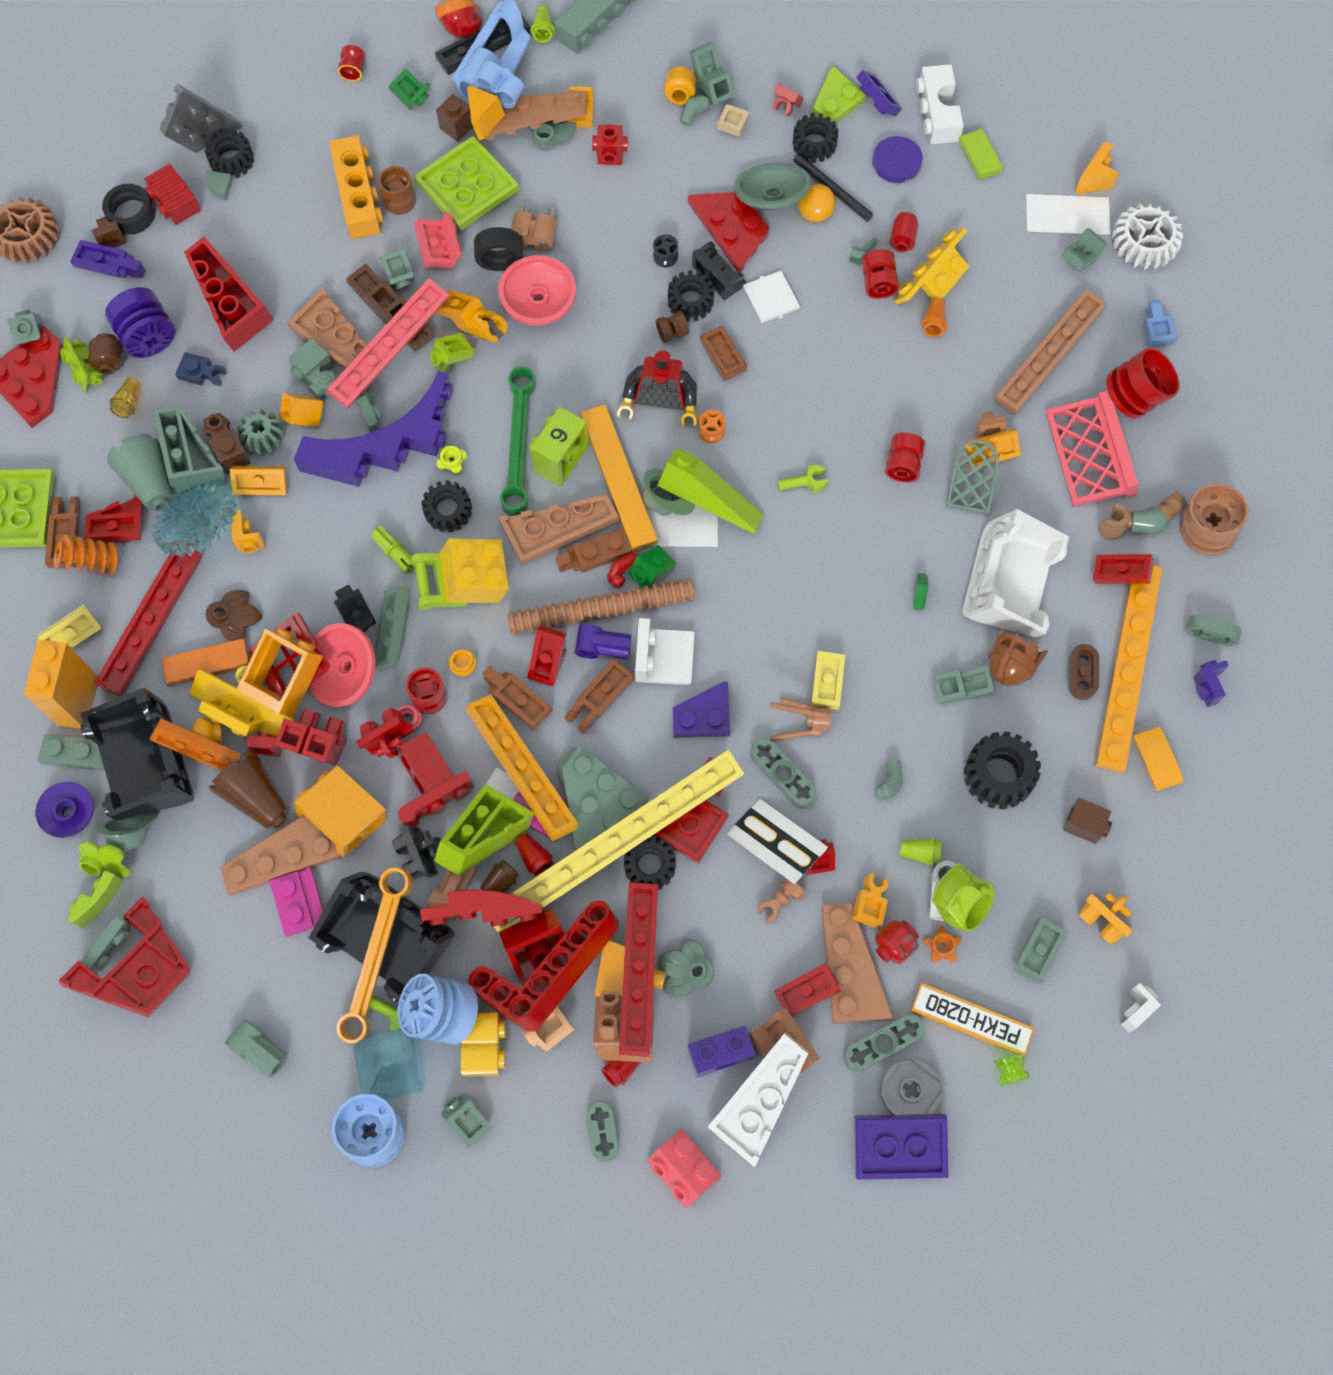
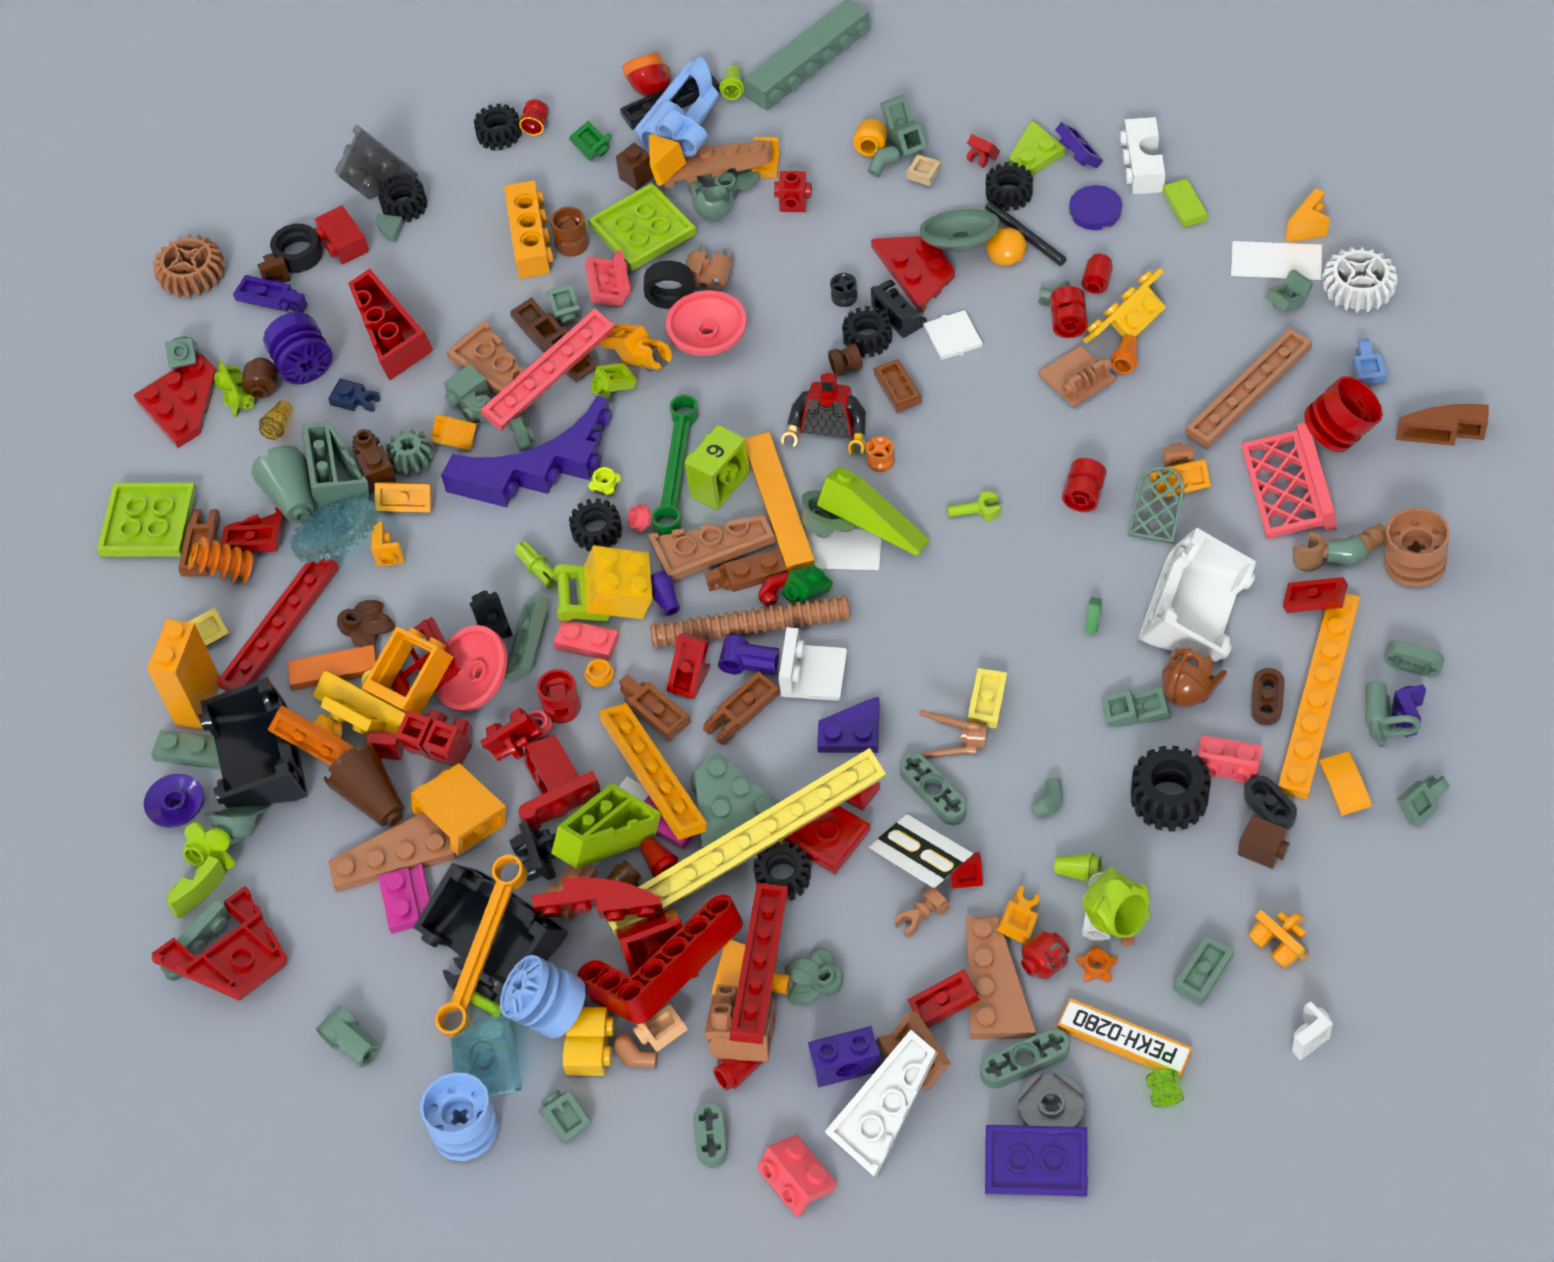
camera: 10 degrees right, 15 degrees down
(311, 63) = (500, 136): none -> black tyre
(350, 986) = (452, 980): none -> black bar
(447, 627) = (586, 640): none -> coral plate
(488, 498) = (639, 517): none -> coral plate
(518, 577) = (664, 592): none -> dark purple cone
(522, 1055) = (631, 1055): none -> nougat arm
(532, 155) = (711, 202): none -> sand green hair
(891, 340) = (1078, 375): none -> nougat hinge
(1052, 735) = (1230, 758): none -> coral bracket
(1093, 779) = (1272, 803): none -> black plate
(1186, 691) = (1379, 716): none -> sand green piece
(1225, 773) = (1419, 799): none -> sand green plate
(1232, 387) = (1444, 424): none -> dark orange slope

